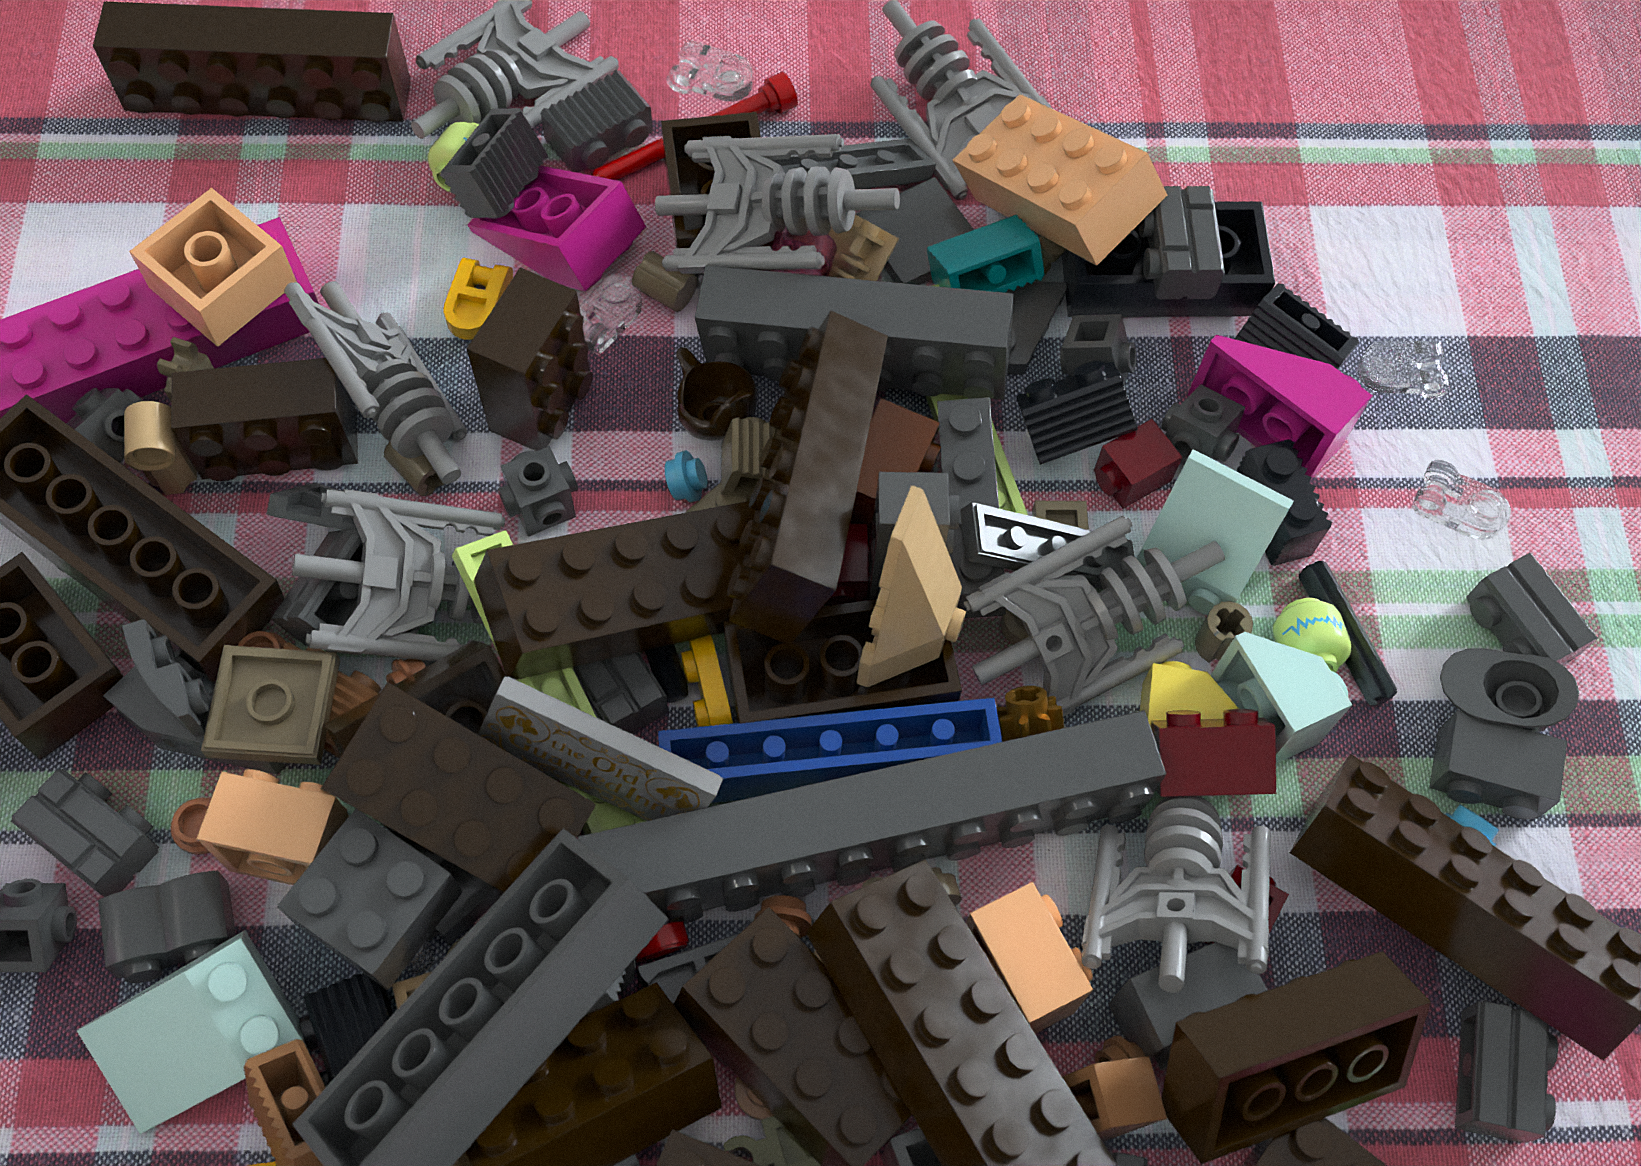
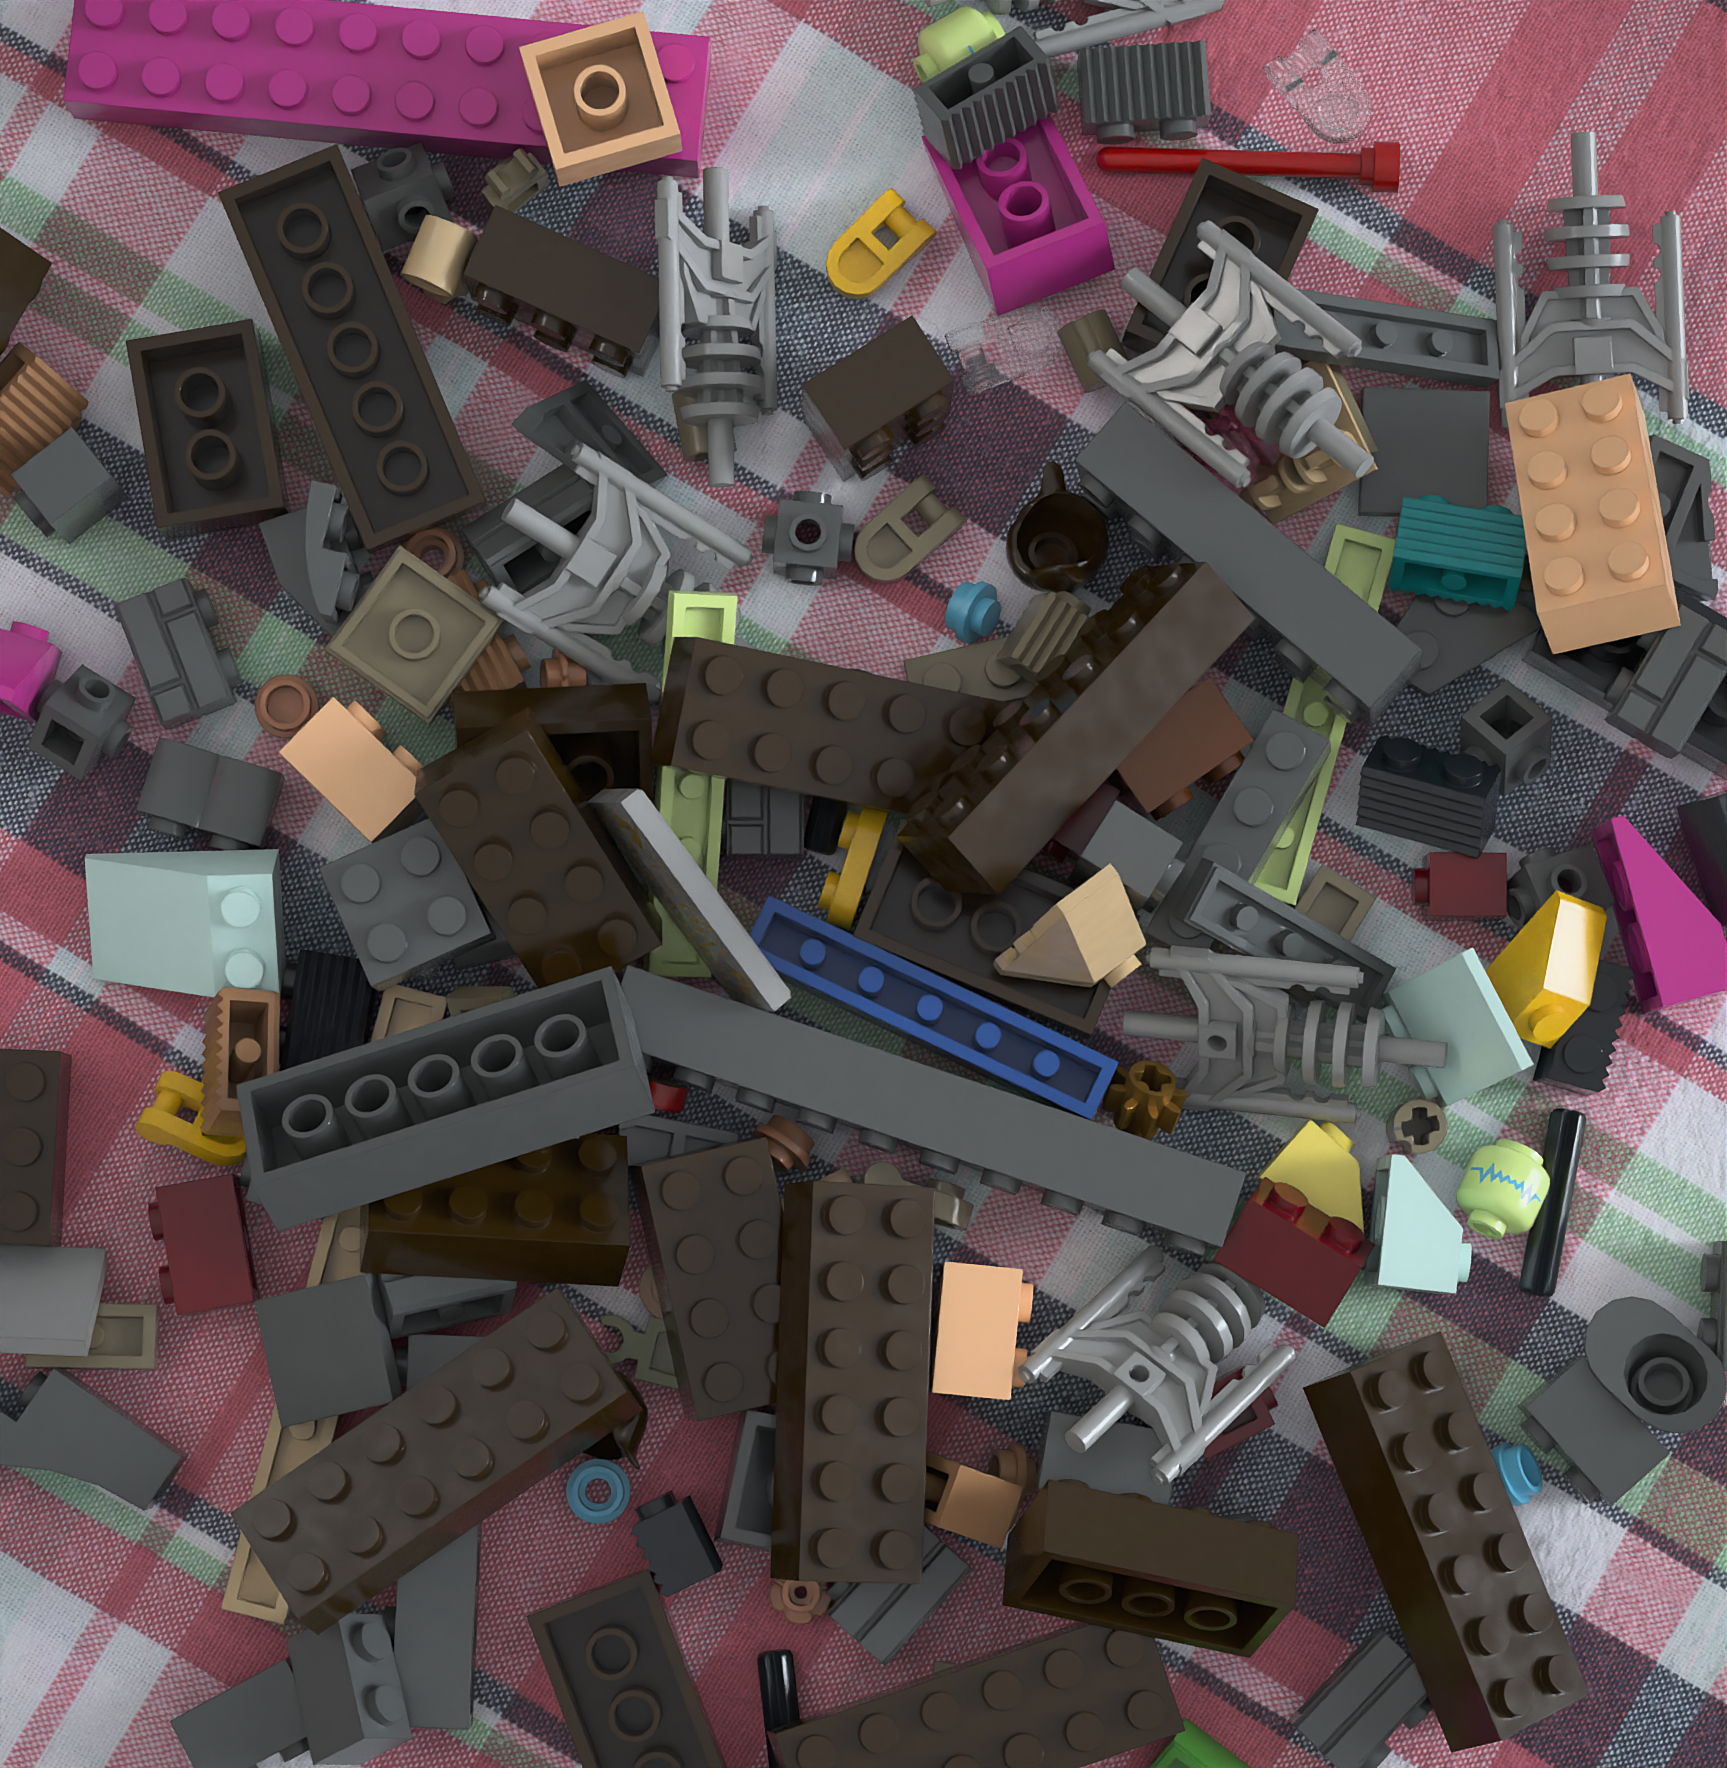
camera: 30 degrees right, 20 degrees up
(601, 469) = (886, 545): none -> dark tan plate
(1240, 443) = (1550, 968): none -> yellow slope

